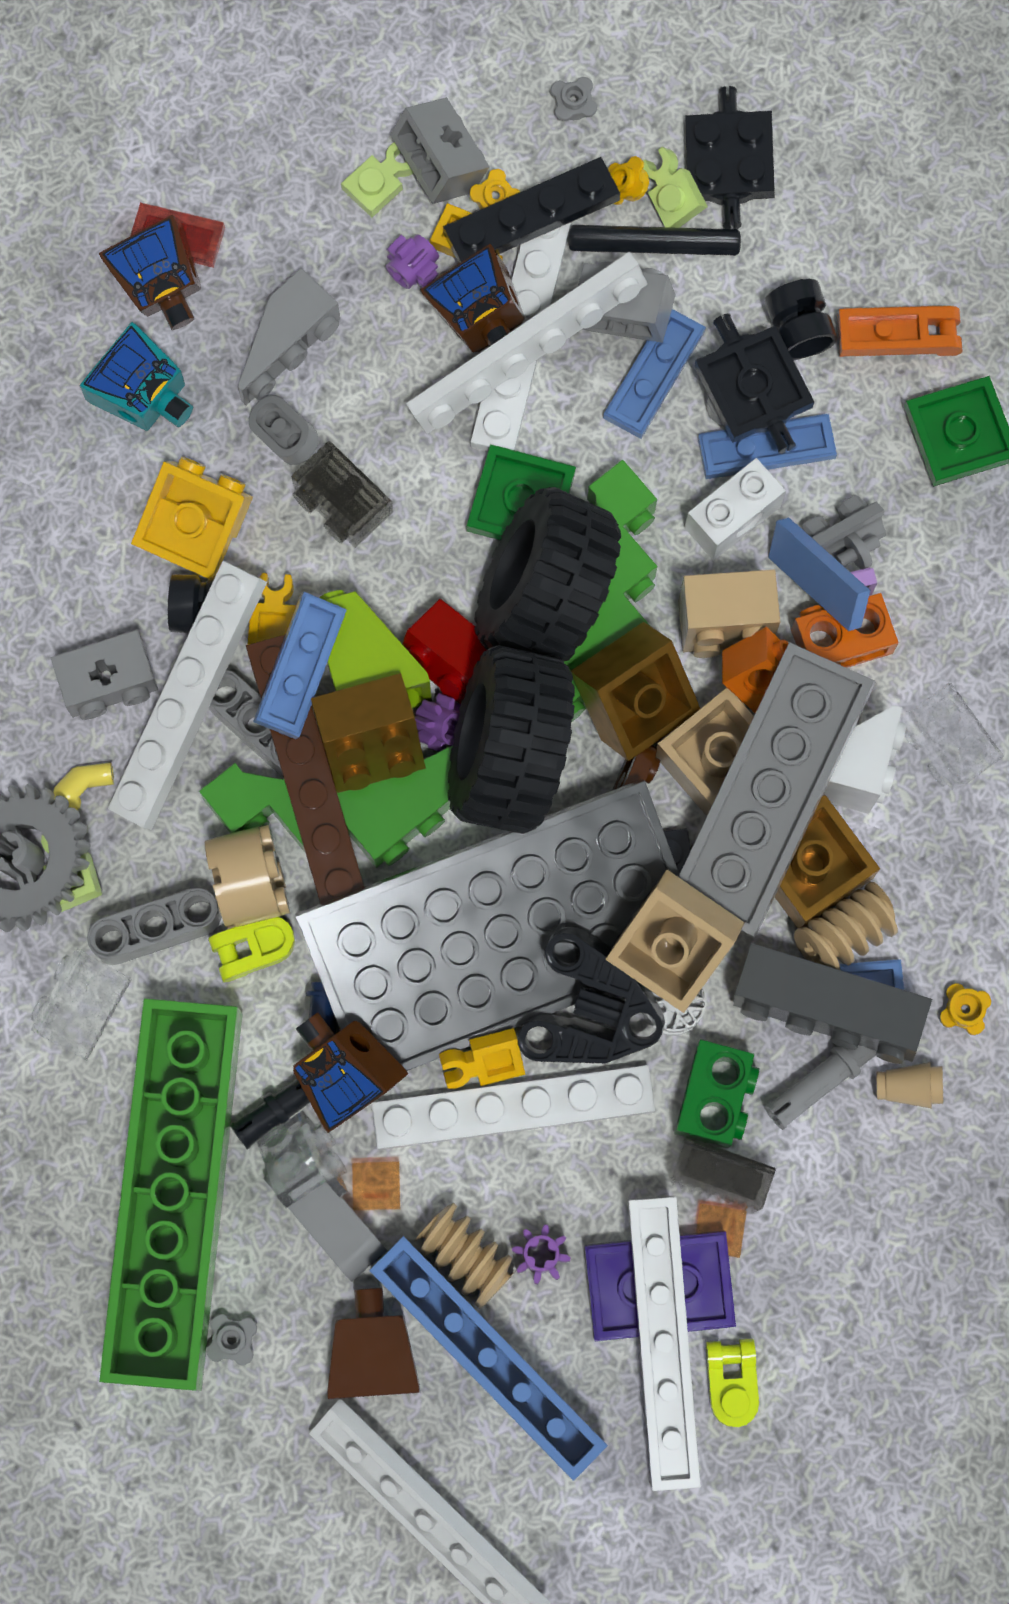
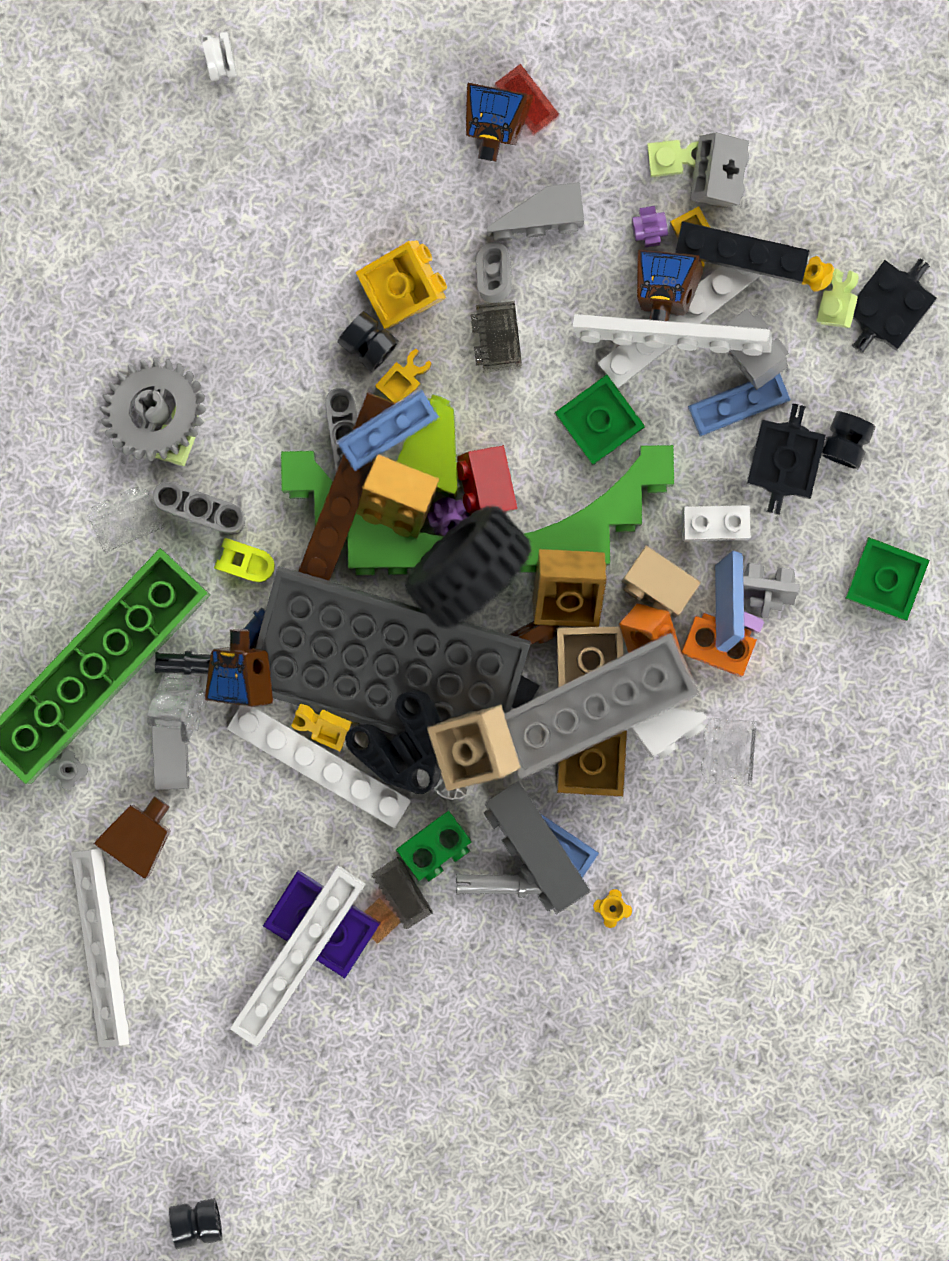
camera: 40 degrees right, 10 degrees up
(81, 677) = (269, 325): light grey brick -> none
(81, 778) = (222, 388): light yellow arm -> none
(137, 382) = (433, 177): torso -> none
(187, 695) = (317, 390): white plate -> none
(247, 877) = (270, 521): tan brick -> none
(376, 1186) = (210, 748): clear orange tile -> none
(465, 1255) = (228, 825): tan piece -> none
(488, 1358) = (196, 890): medium blue brick -> none
(495, 183) = (725, 215): yellow plate -> none
(532, 1243) = (279, 857): medium lavender gear -> none
(548, 575) = (567, 486): black tyre -> none
(569, 110) = (818, 200): light grey plate -> none
(654, 240) = (804, 322): black axle -> none
(733, 1400) = (312, 1015): neon yellow plate -> none
(812, 439) = (795, 512): medium blue tile -> none
(848, 927) = (581, 813): tan piece -> none
(898, 331) = (900, 490): orange plate -> none
(912, 1085) = (547, 926): tan cone -> none

